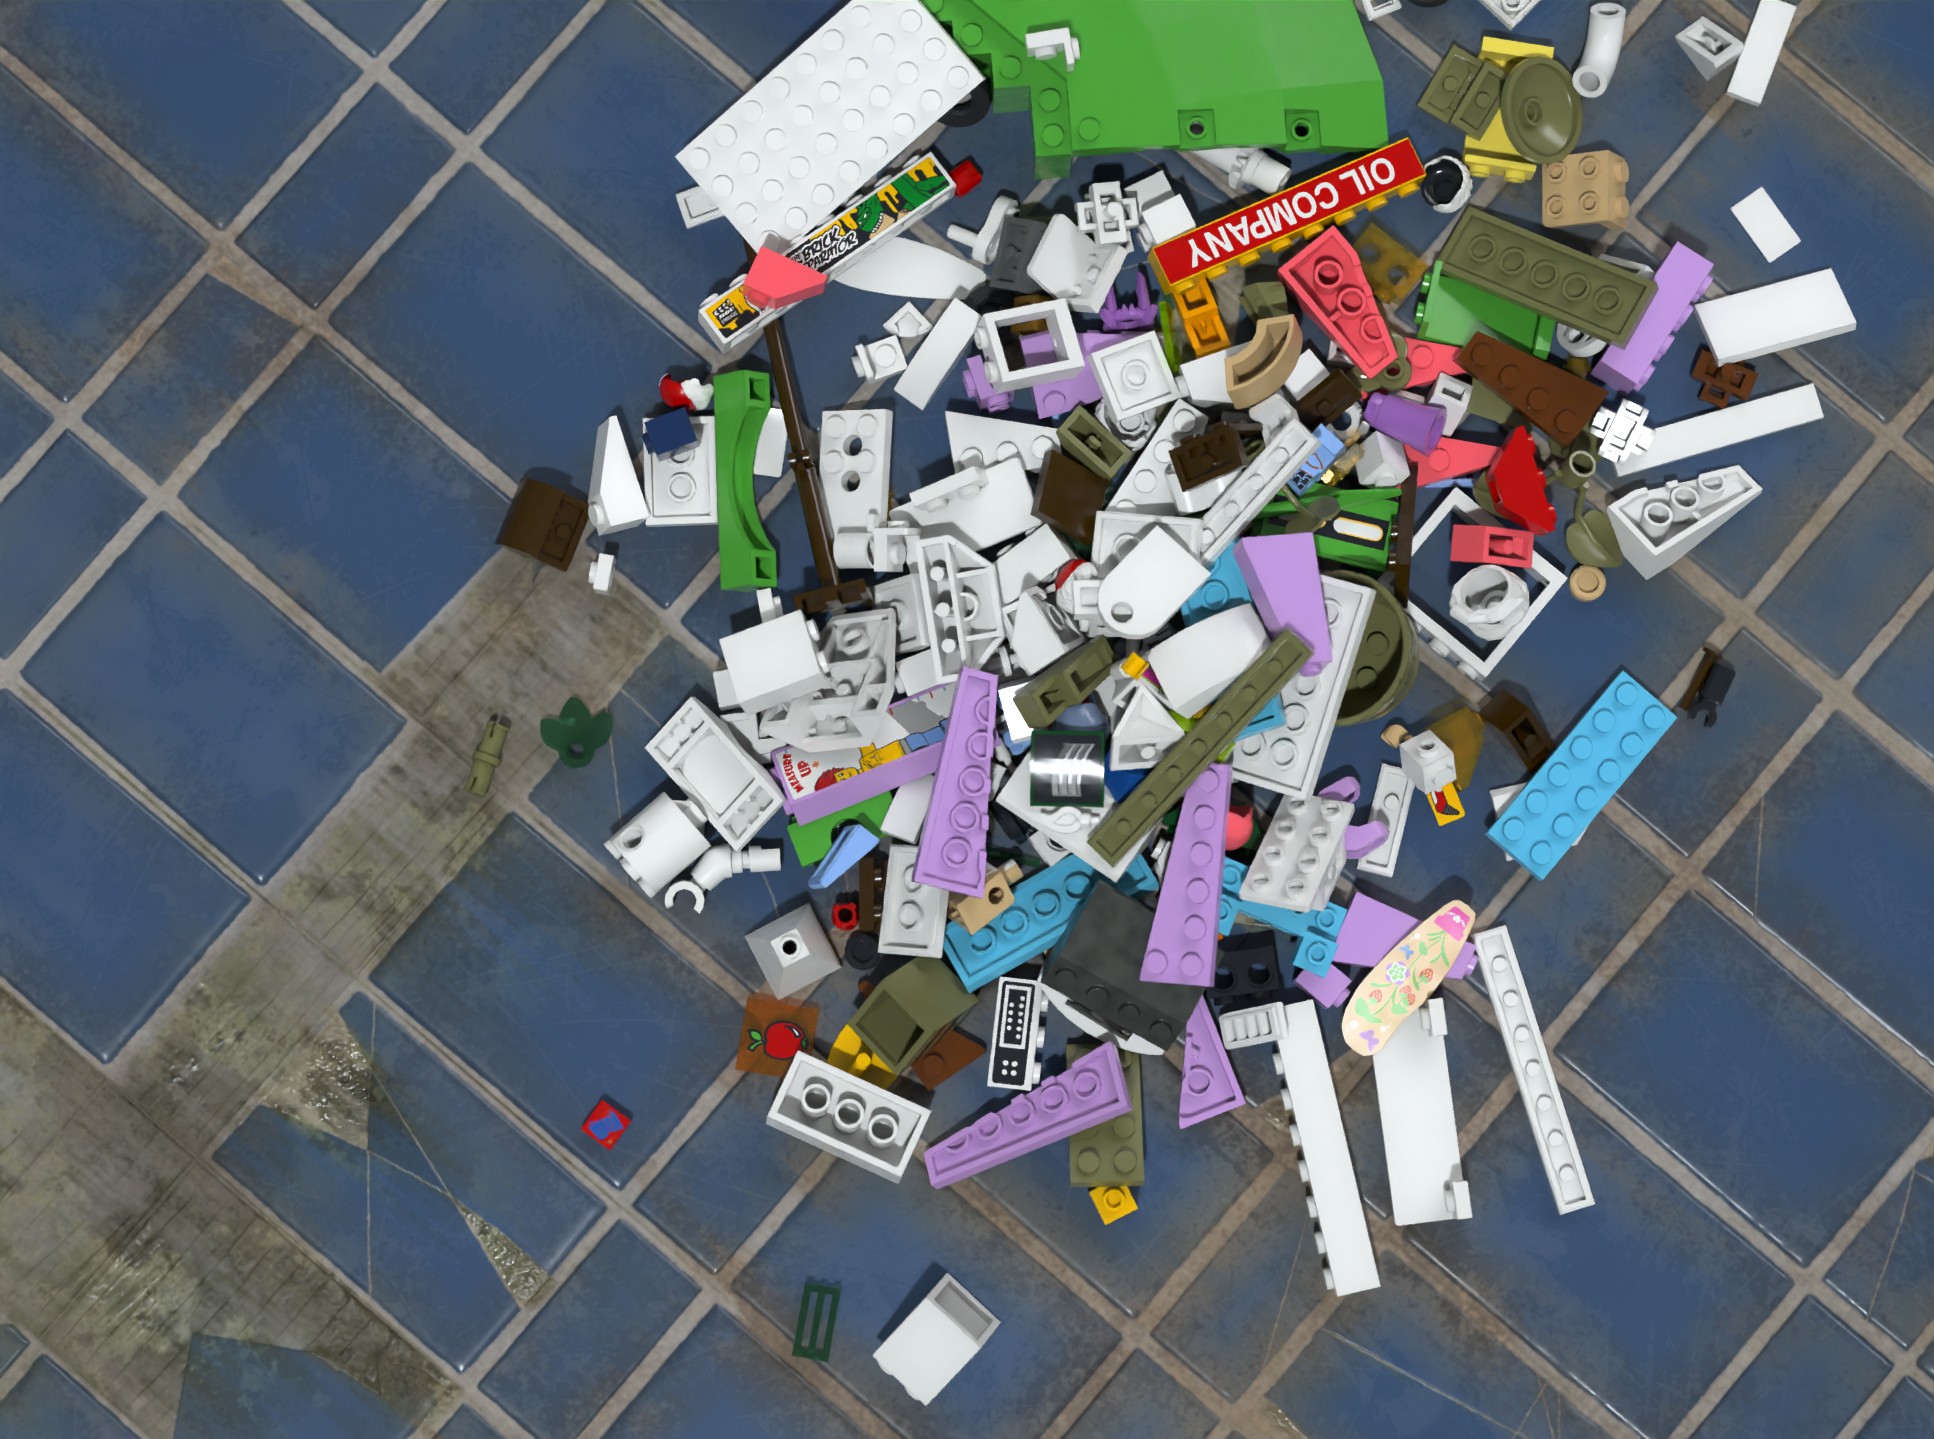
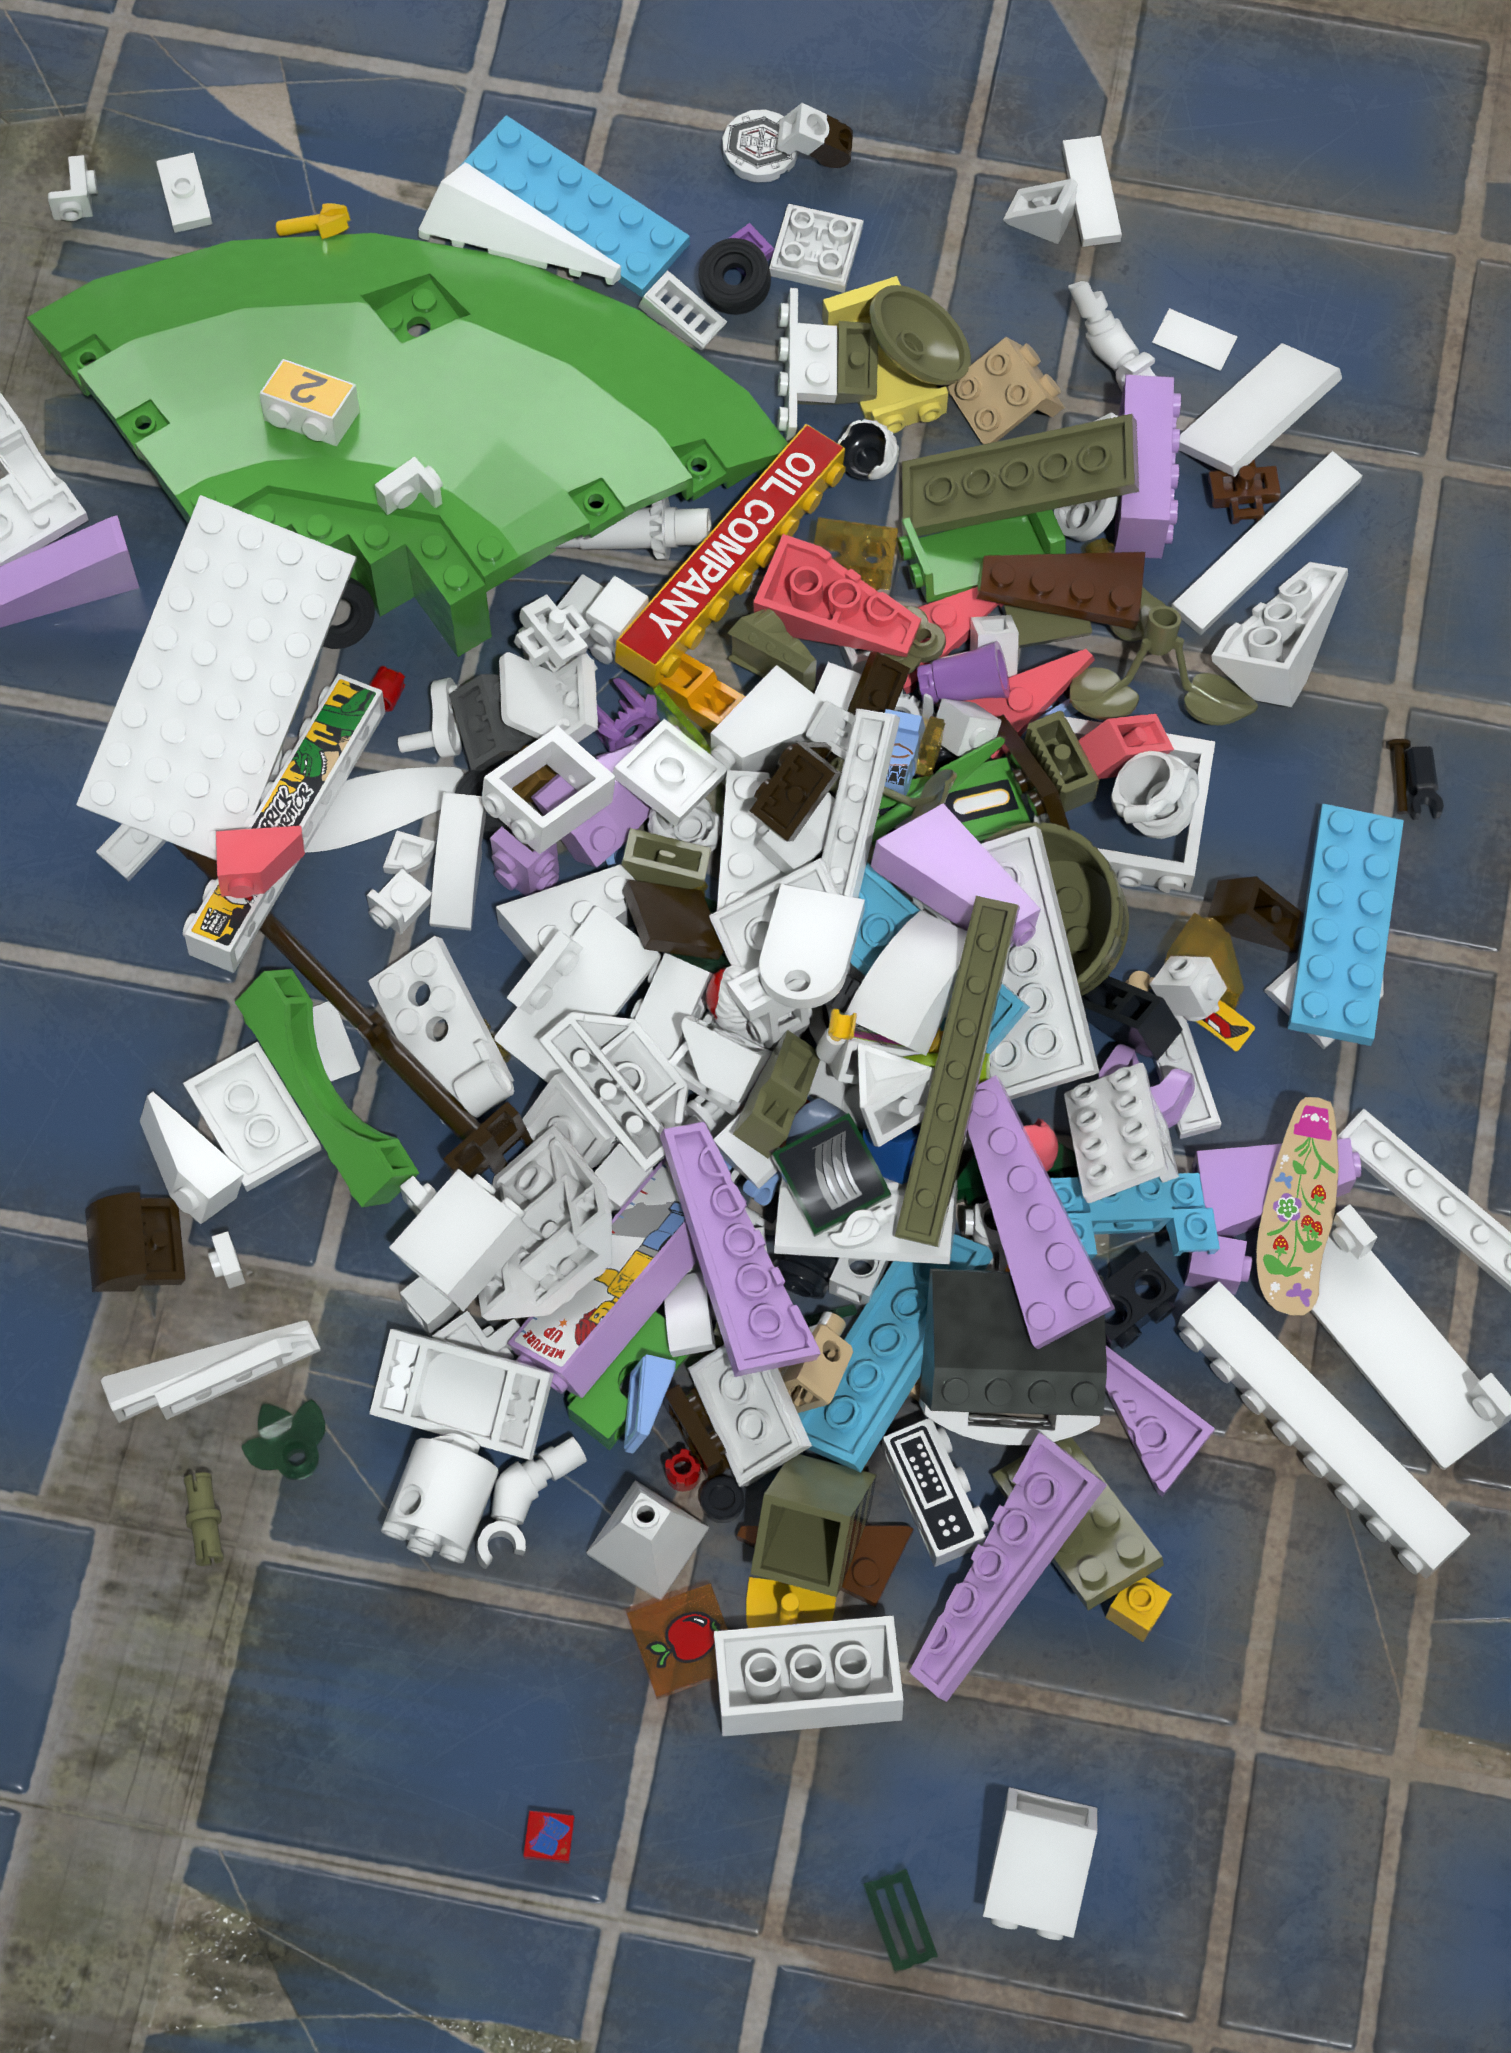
camera: 30 degrees left, 15 degrees down
(545, 649) = (207, 1373): none -> white wedge
(670, 435) = (222, 1078): dark blue brick -> none
(685, 393) = (216, 1034): hair -> none
(889, 546) = (516, 1069): white bracket -> none
(1252, 1027) = (1158, 1359): white slope -> none
(1265, 362) = (795, 678): tan brick -> none
(1371, 761) = (1132, 1017): none -> black slope
(1433, 535) = (1062, 759): none -> olive brick
(1443, 83) = (809, 364): none -> white bracket
(1518, 485) = (1116, 671): red slope -> none
(1586, 583) = (1234, 745): tan tile -> none
(1600, 50) = (941, 260): white cylinder -> none
(1622, 431) = (1176, 581): white piece -> none
(1695, 199) = (1108, 336): none -> white piece

